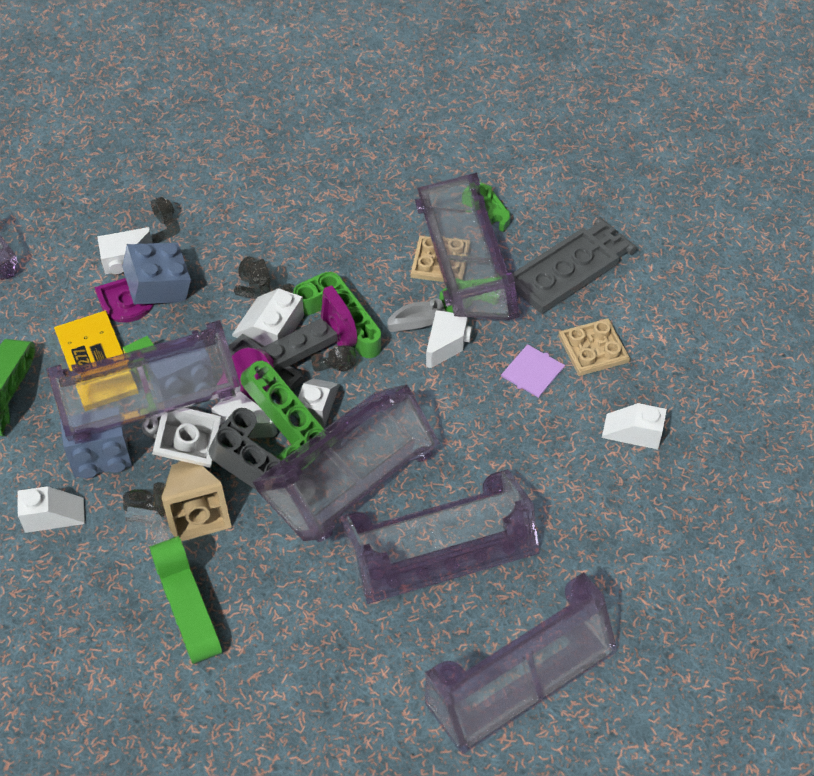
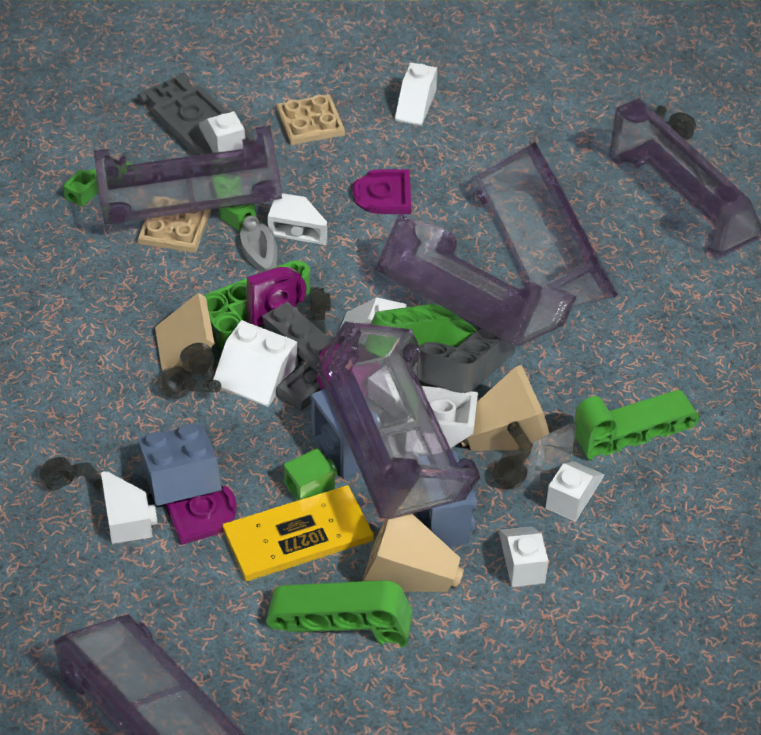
camera: 90 degrees left, 5 degrees down
(39, 426) = (412, 557): none -> tan slope
(116, 550) = (572, 489): none -> white slope
(284, 271) = (182, 328): none -> tan tile
(498, 407) = (384, 191): none -> magenta tile
(532, 371) = (336, 165): lavender piece -> none
(540, 271) = (223, 132): none -> white slope
(623, 672) = (680, 122): none -> clear smoke plate

